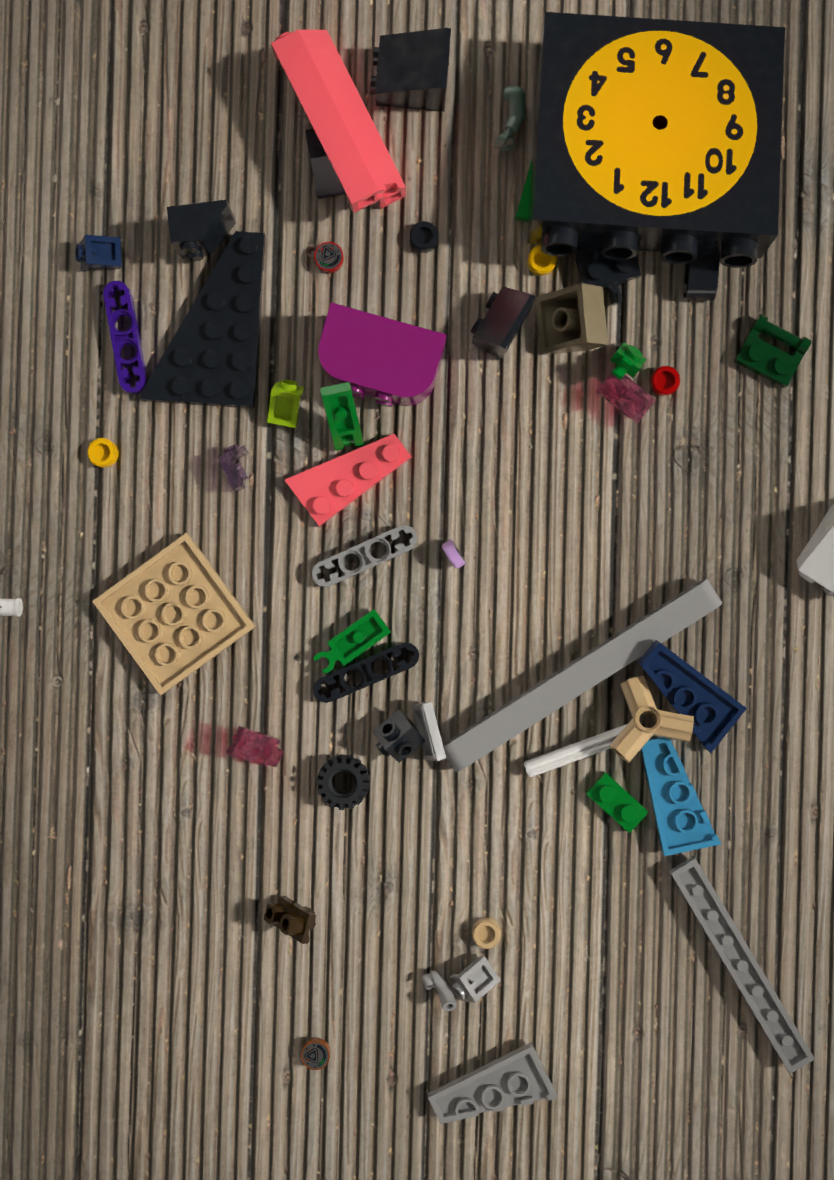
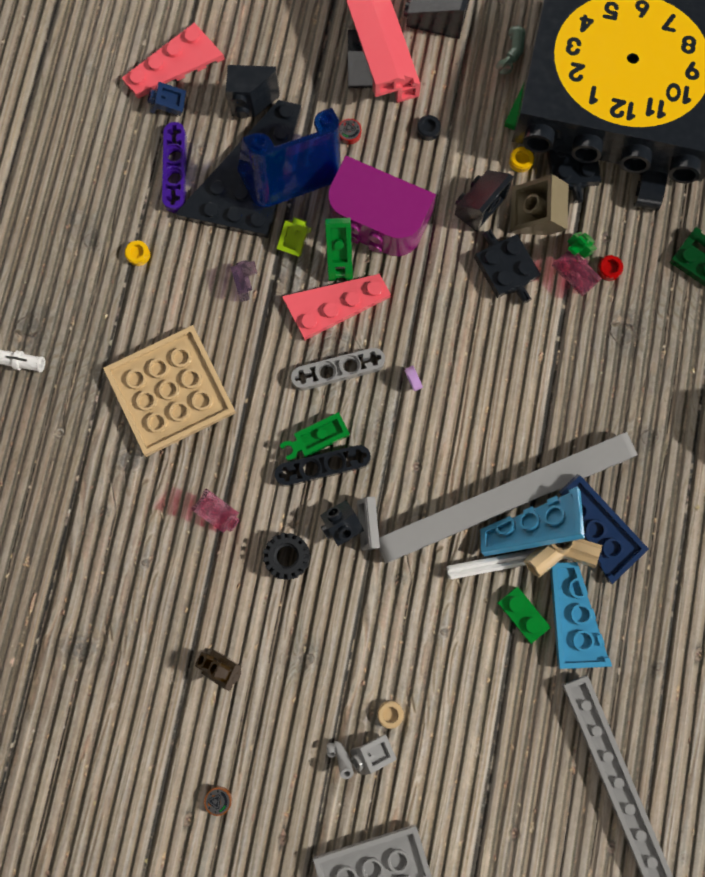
camera: 10 degrees right, 10 degrees down
(97, 198) = (180, 56): none -> coral wing
(273, 325) = (292, 167): none -> clear blue windscreen
(543, 398) = (507, 266): none -> black plate
(621, 707) = (547, 524): none -> dark azure wing

